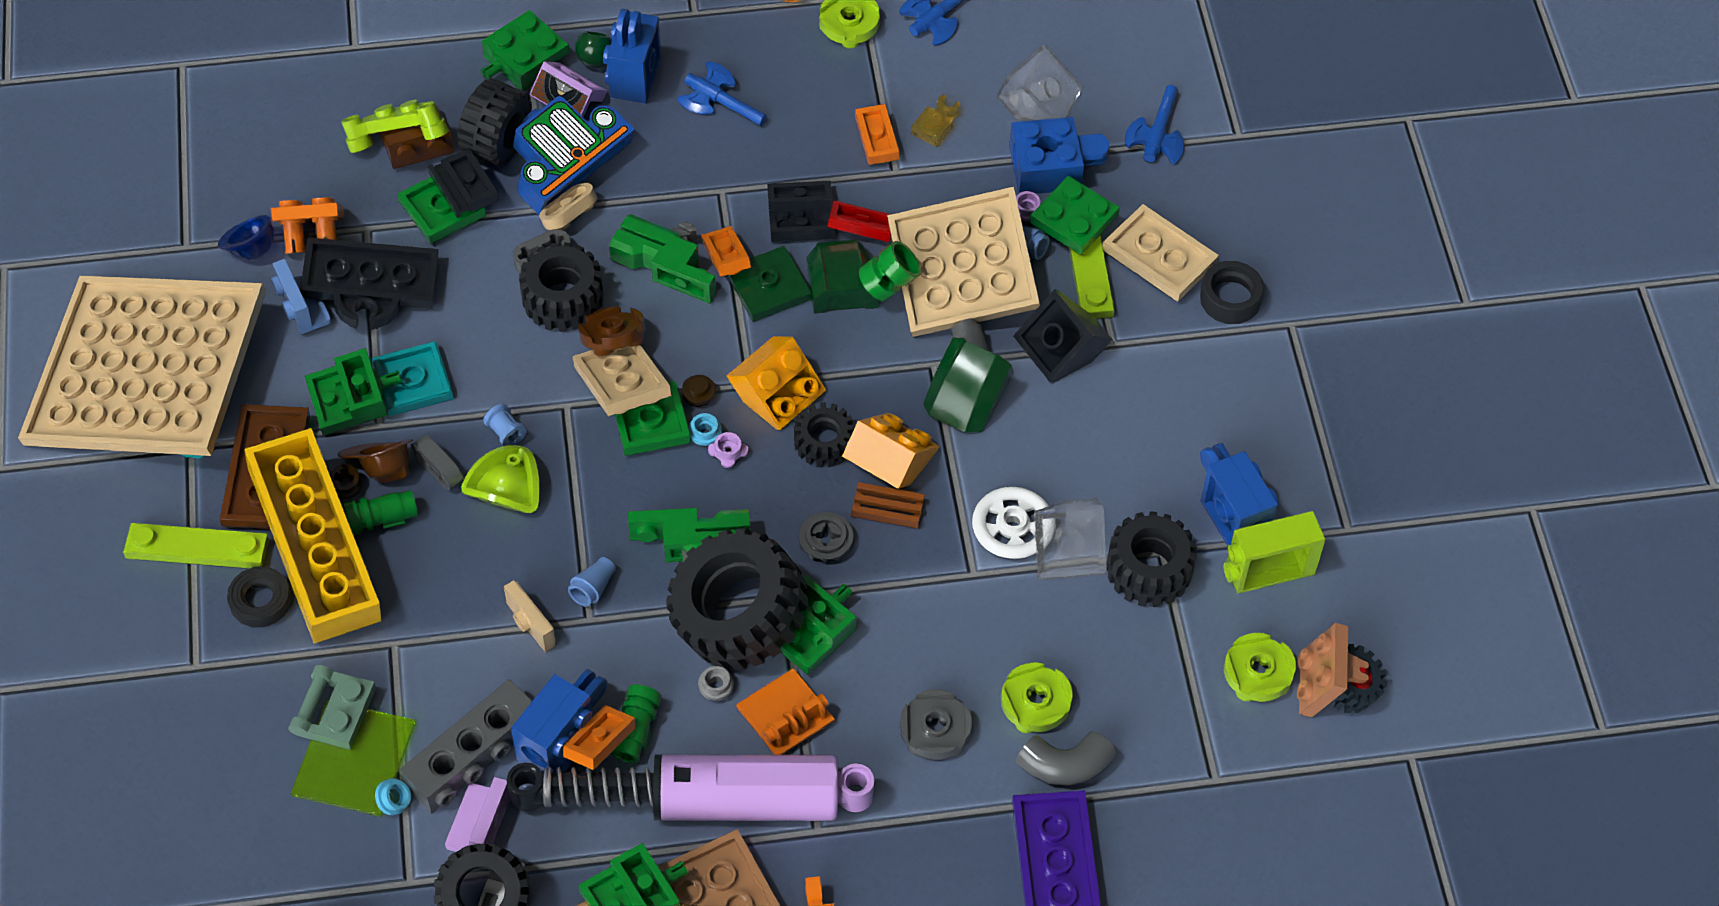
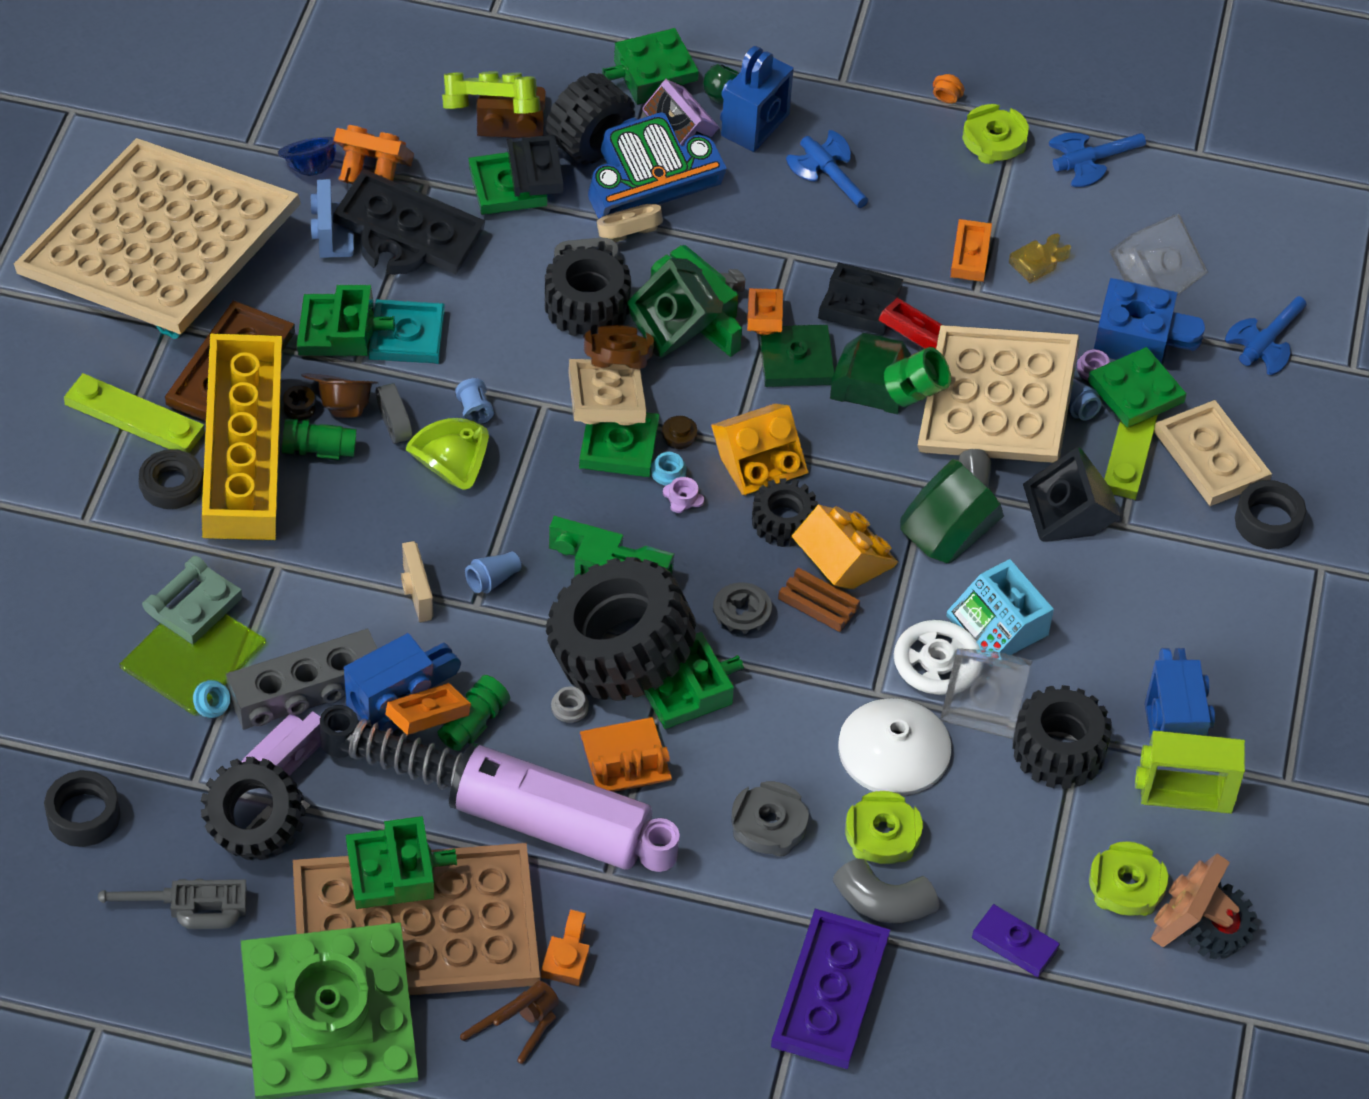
camera: 20 degrees right, 5 degrees down
(648, 276) = (674, 305): none -> dark green slope
(1005, 633) = (893, 761): none -> white dish
(1051, 461) = (1003, 610): none -> medium azure slope
(1190, 758) = (1015, 940): none -> dark purple plate

